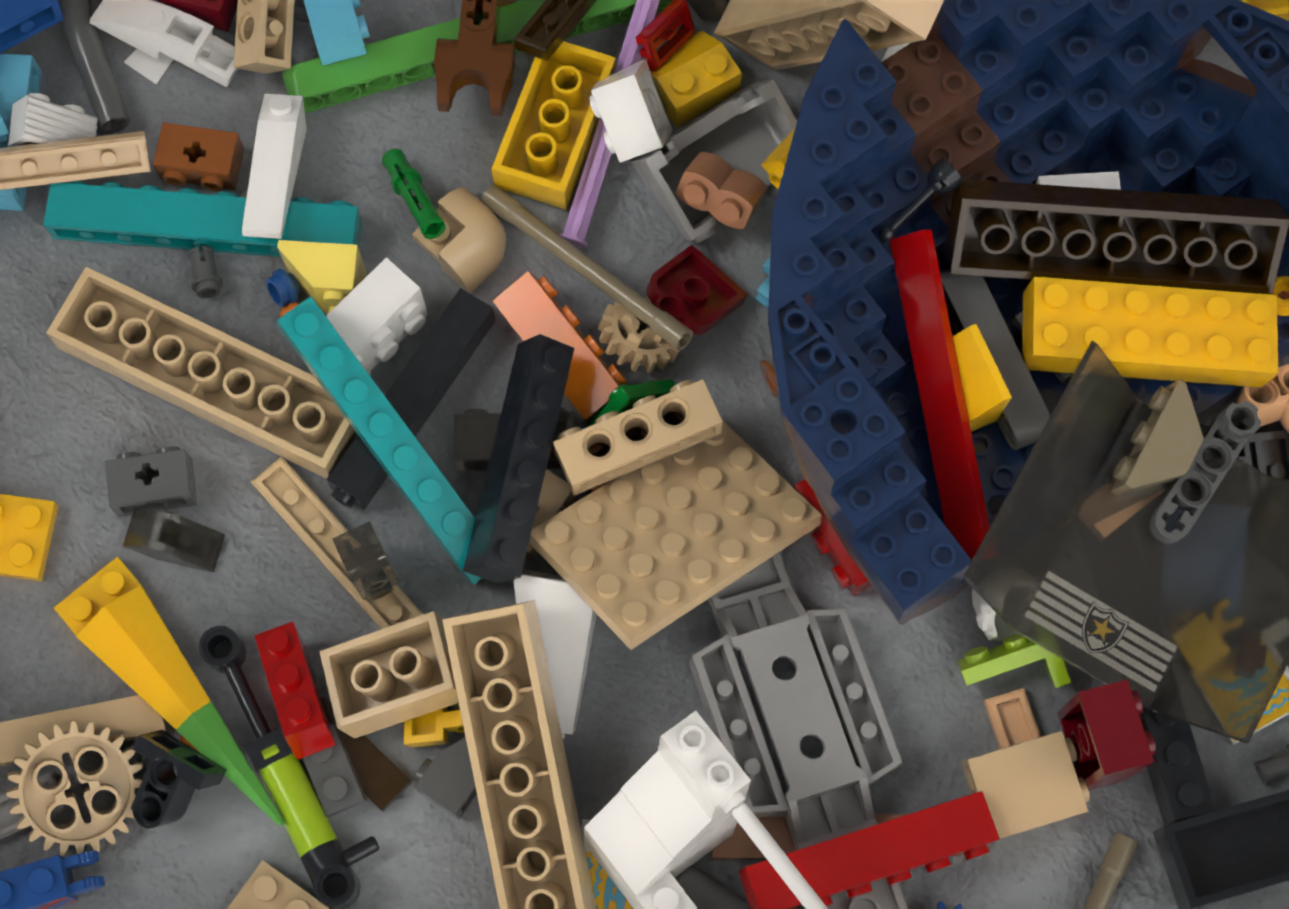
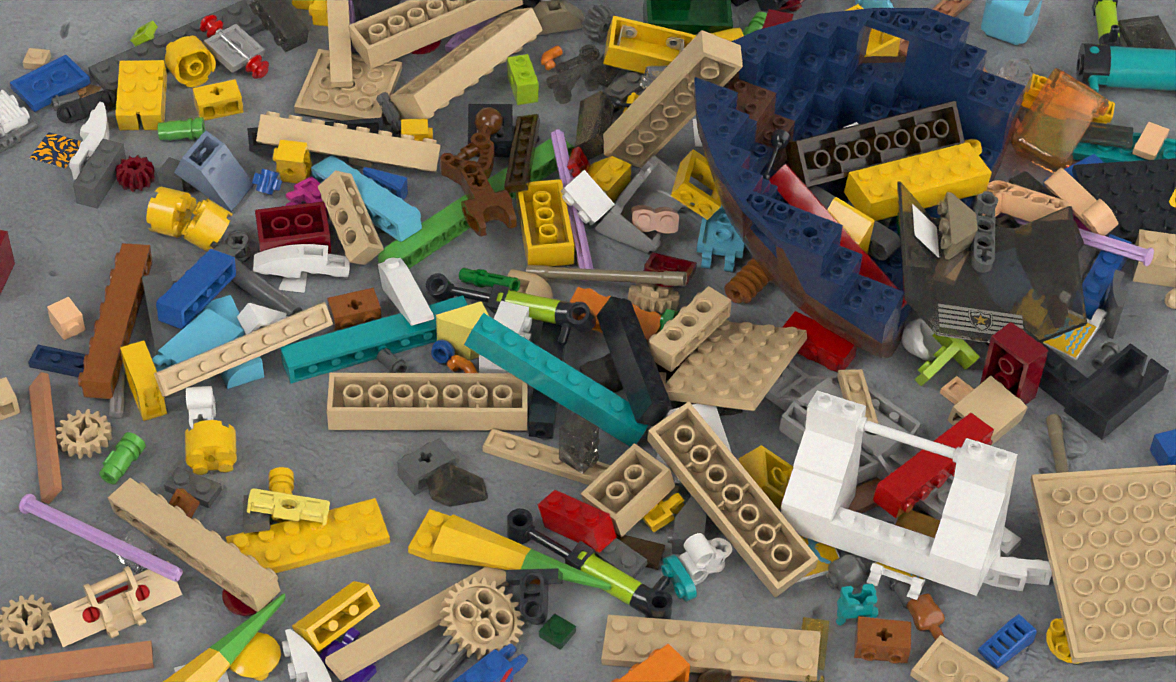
camera: 30 degrees left, 25 degrees down
(181, 849) = (557, 631): none -> dark green plate
(393, 868) = (682, 582): none -> teal plate
(423, 265) = (540, 307): none -> black piece
(439, 837) = (704, 556): none -> white piece
(614, 739) = (768, 472): none -> yellow slope
(823, 680) = (855, 389): none -> tan tile
(1100, 436) = (925, 231): none -> white sticker

